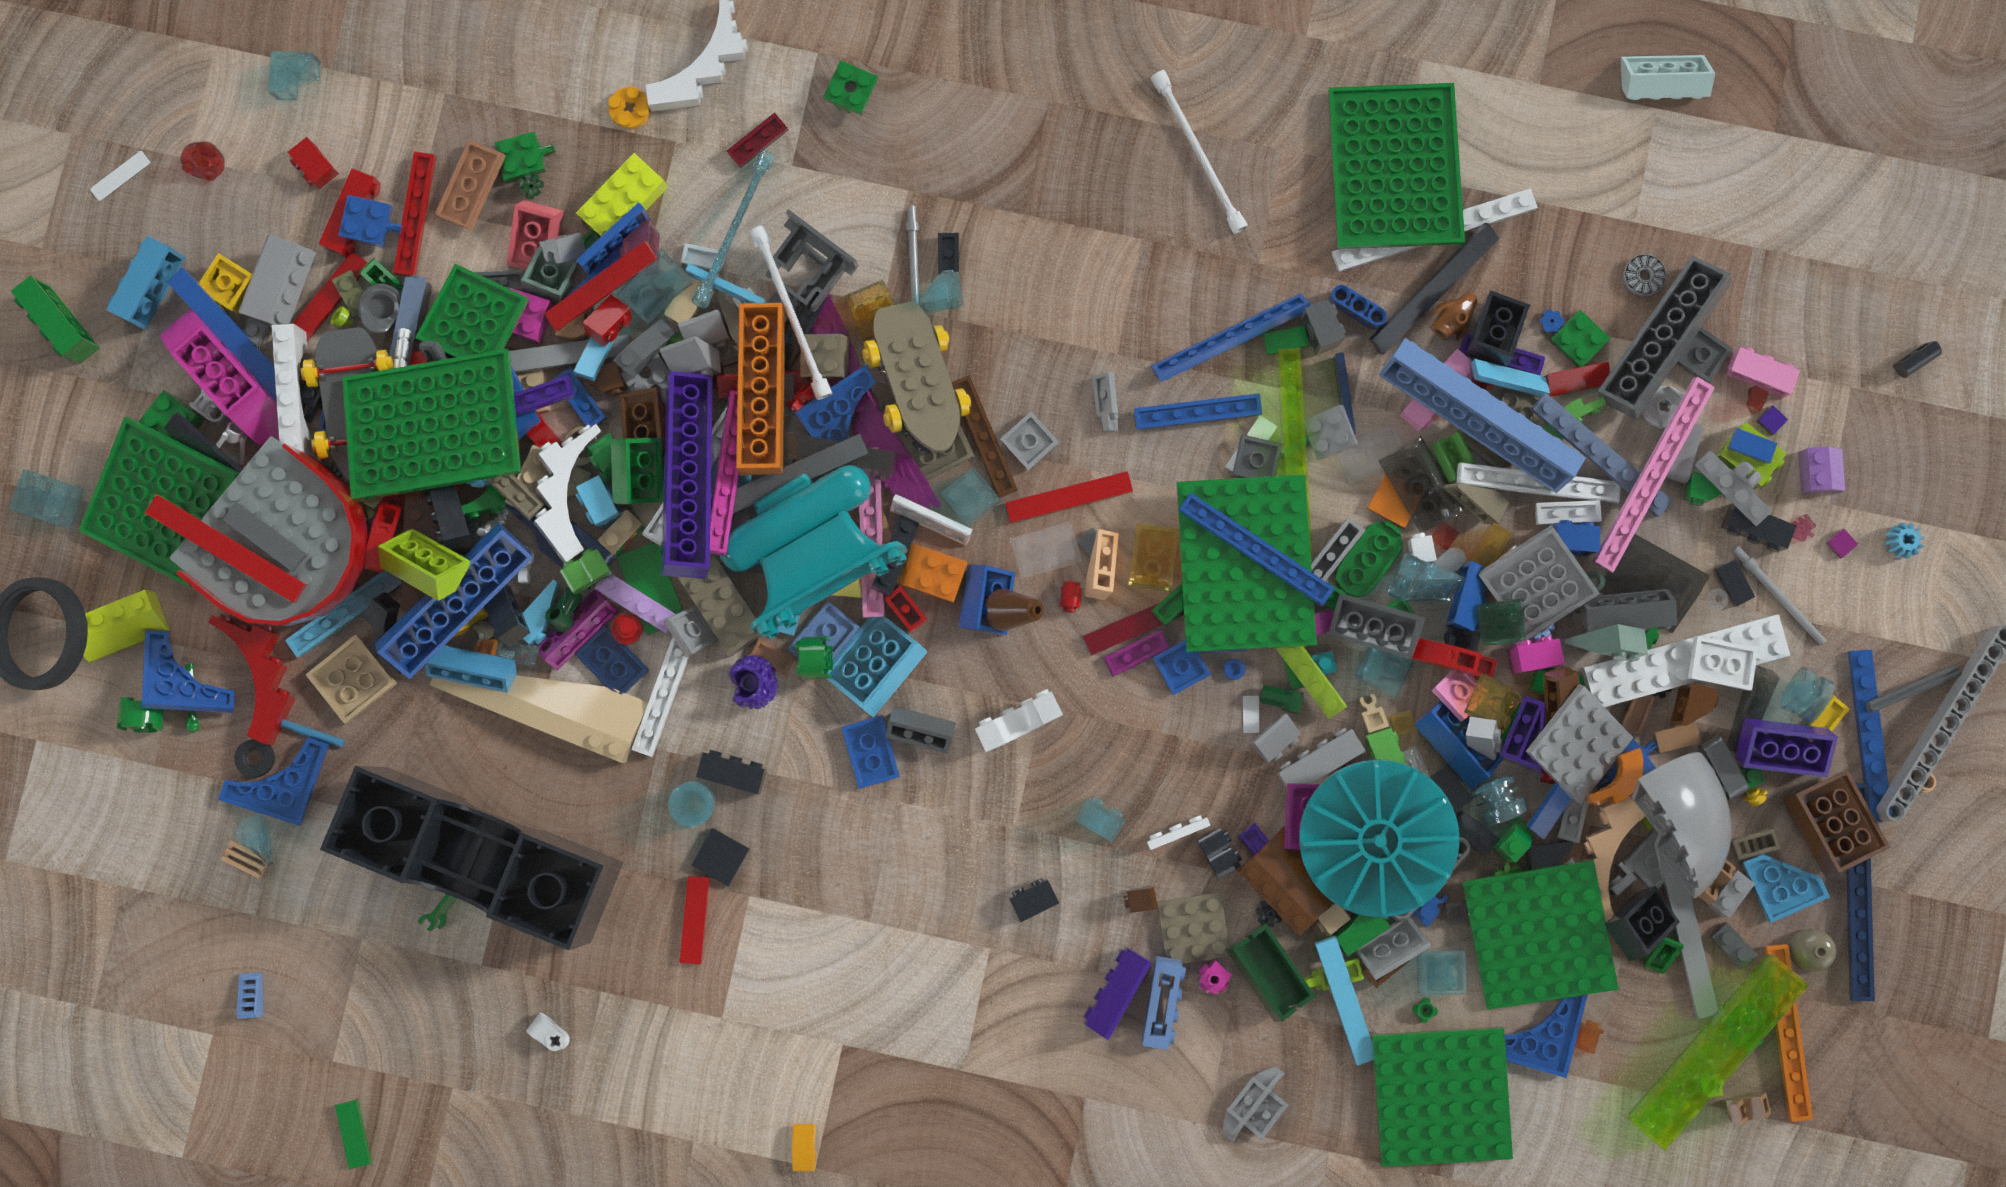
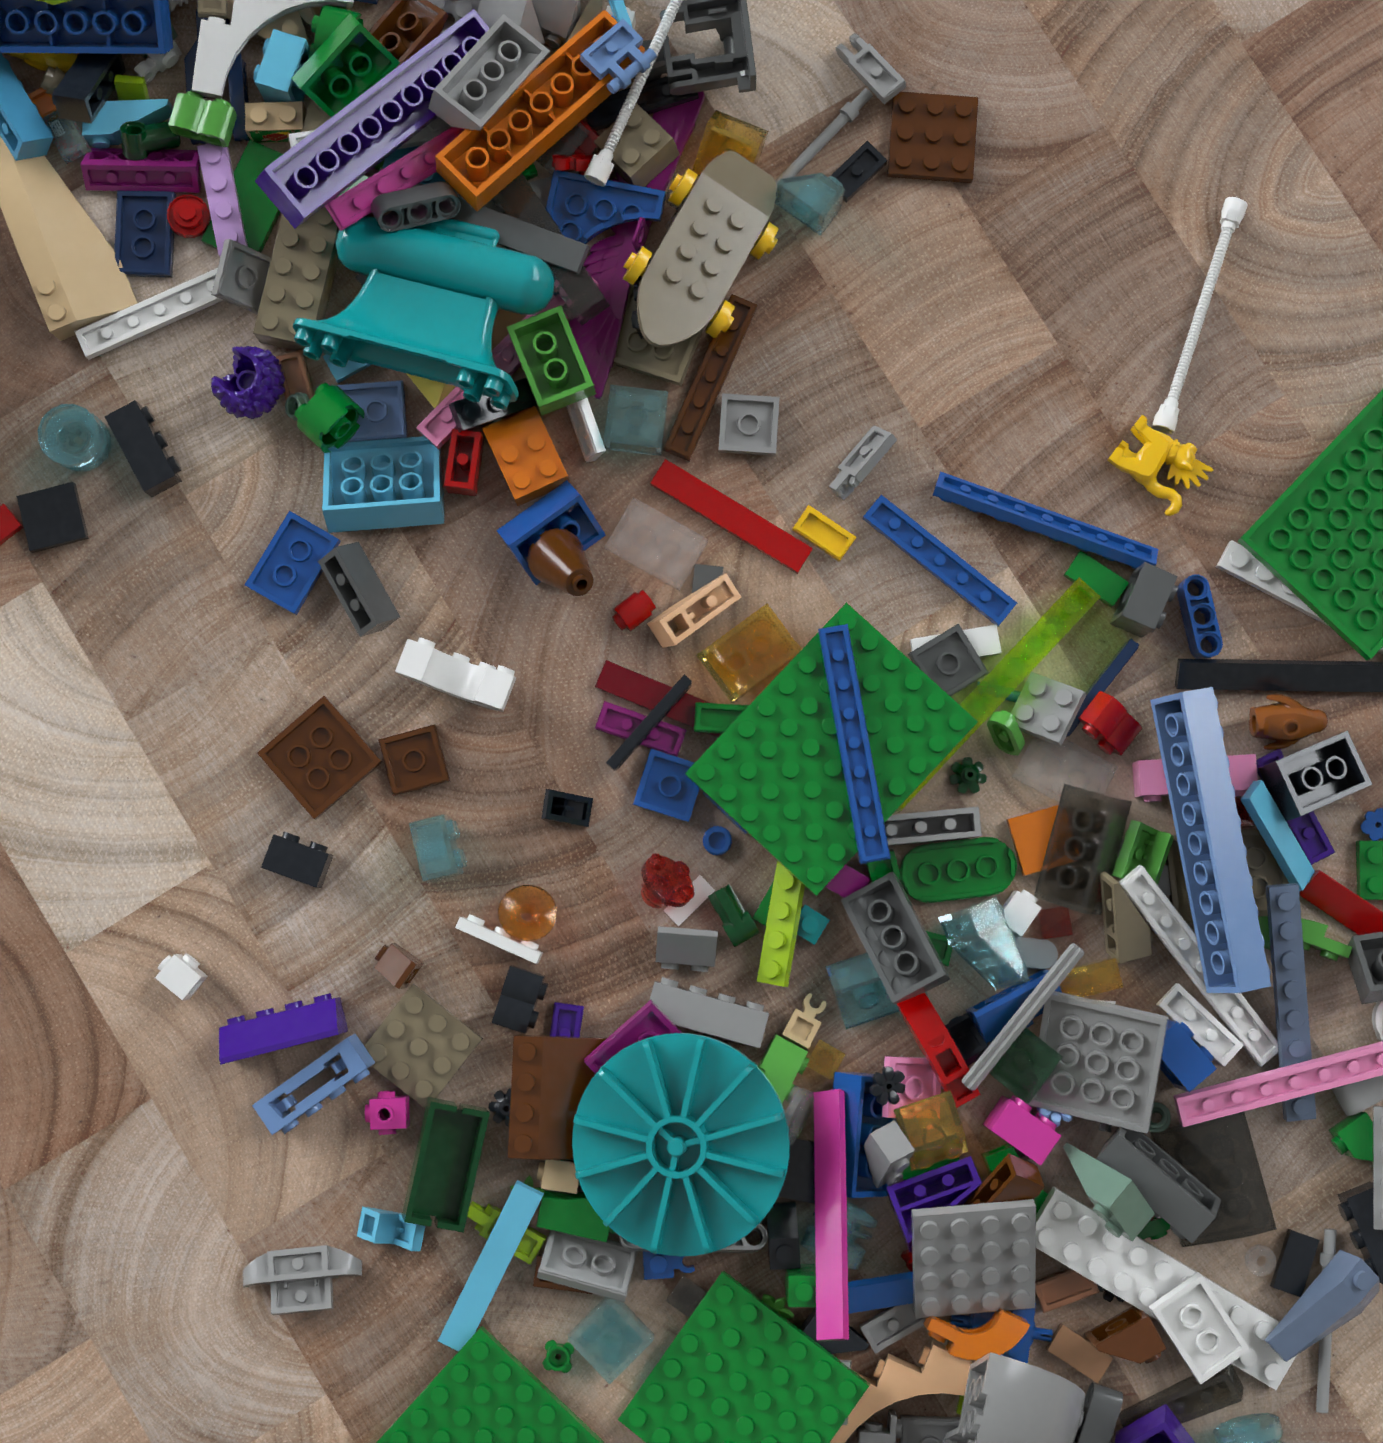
camera: 40 degrees right, 0 degrees up
(527, 593) = (131, 87): none -> lime tile
(719, 399) = (487, 75): none -> light grey slope
(750, 504) = (427, 212): none -> dark grey beam
(768, 321) = (611, 50): none -> medium blue plate
(788, 668) = (294, 402): none -> sand green plate
(899, 511) = (551, 360): none -> bright green brick
(901, 193) = (872, 69): none -> light grey hinge
(968, 196) = (932, 137): none -> reddish brown plate
(989, 836) = (319, 757): none -> reddish brown plate
(1035, 1019) = (181, 975): none -> white brick
(1038, 788) = (414, 760): none -> reddish brown tile
(1125, 457) = (824, 533): none -> yellow tile
(1140, 645) = (649, 723): none -> black tile
(1142, 731) = (566, 808): none -> black slope
(1174, 796) = (527, 900): none -> clear orange dish
(1232, 717) = (666, 882): none -> clear red plate
(1249, 246) = (1156, 450): none -> yellow animal
(1274, 1035) = (389, 1228): none -> medium azure slope
(1320, 506) = (962, 778): none -> dark green plant
(1322, 465) = (1006, 732): none -> bright green plate
(1369, 407) = (1109, 724): none -> red brick
(1448, 703) = (887, 1085): none -> black plant
(1480, 599) = (1023, 1016): none -> light grey axle
(1488, 795) = (830, 1216): none -> dark pink tile
(1771, 585) = (1328, 1303): none -> sand blue wedge

